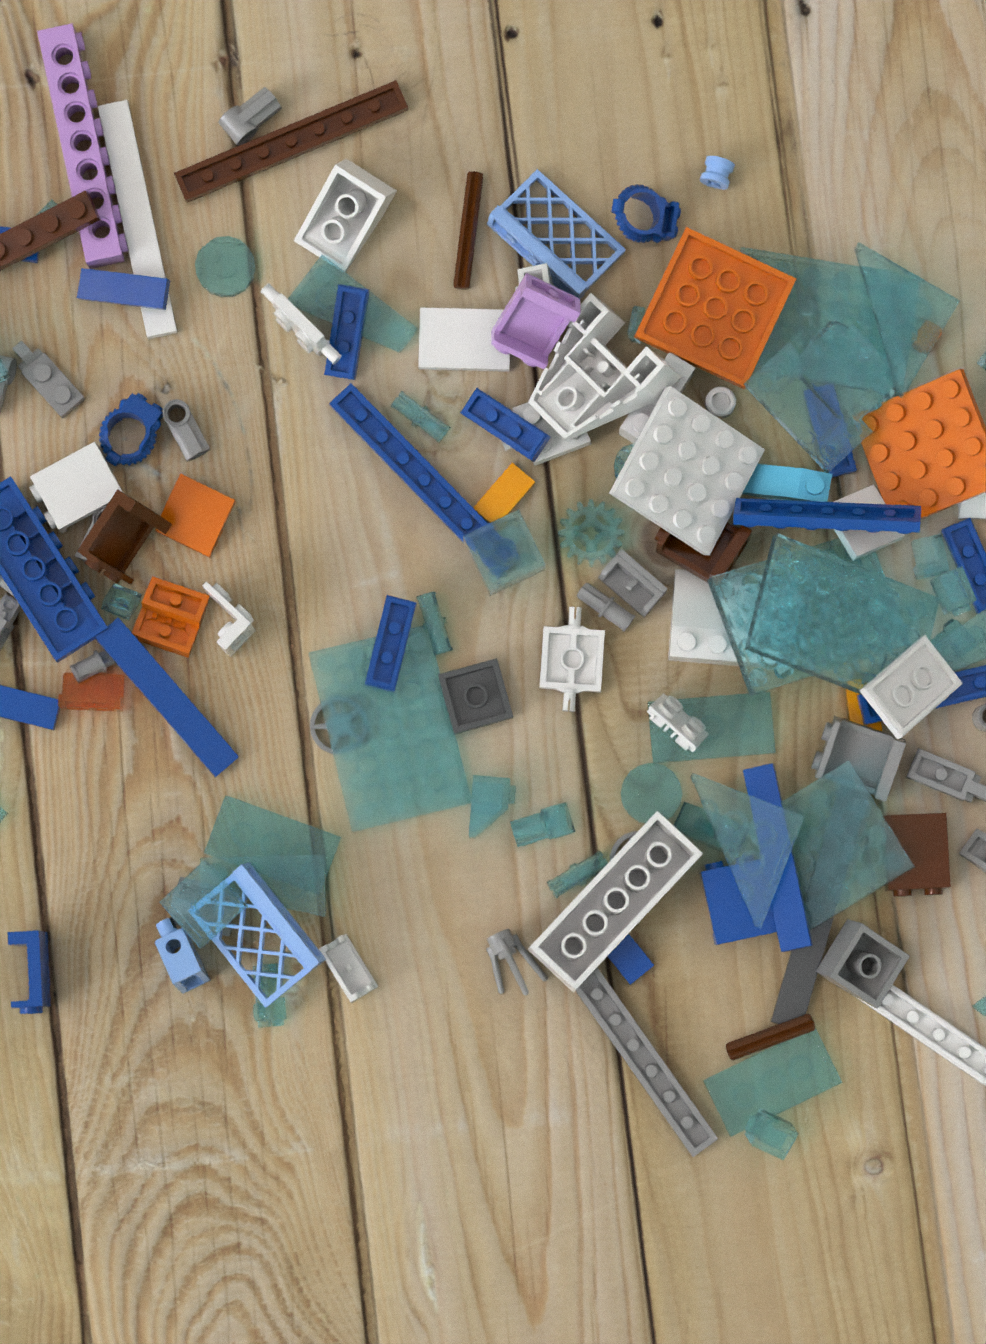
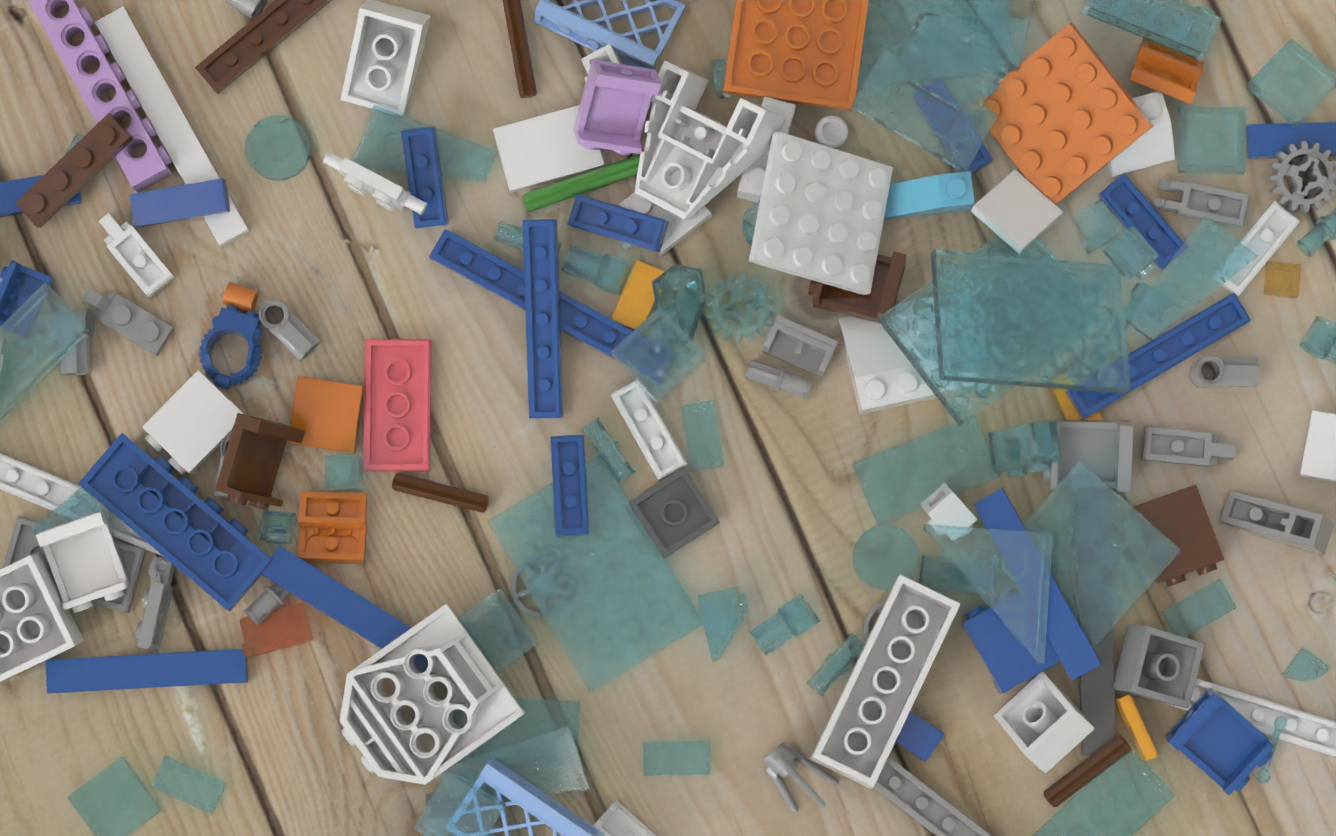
camera: 15 degrees left, 0 degrees up
(70, 324) = (135, 256): none -> white hinge
(151, 388) = (240, 297): none -> orange hinge
(155, 795) = (375, 720): none -> white hinge
(194, 571) = (344, 473): none -> clear light blue brick
(231, 635) = (402, 527): white bracket -> none
(260, 526) = (397, 405): none -> coral tile
(274, 615) = (440, 492): none -> reddish brown axle
(281, 754) = (498, 630): none -> clear light blue brick
(411, 913) = (676, 758): none -> clear light blue tile
(412, 489) = (543, 318): none -> blue tile
(476, 617) = (648, 430): none -> white tile
(480, 464) = (605, 271): none -> clear light blue piece
(484, 380) = (581, 183): none -> bright green axle
(522, 636) = (702, 435): none -> clear light blue tile
(541, 506) = (681, 296): none -> clear light blue slope
(572, 659) = (761, 444): white plate -> none
(669, 711) = (906, 478): white hinge -> none
(718, 766) = (947, 509): none -> white brick
(745, 982) = (1043, 722): none -> white slope
(803, 734) = (1024, 448): none -> clear light blue brick
(826, 1011) = (1136, 727): none -> light orange tile
(827, 515) = (980, 215): blue plate -> none
(897, 1047) = (1220, 741): none -> blue panel
(911, 687) = (1120, 366): white tile -> none
(915, 925) = (1199, 609): none -> clear light blue tile
(926, 1089) = (1263, 775): none -> clear light blue hinge

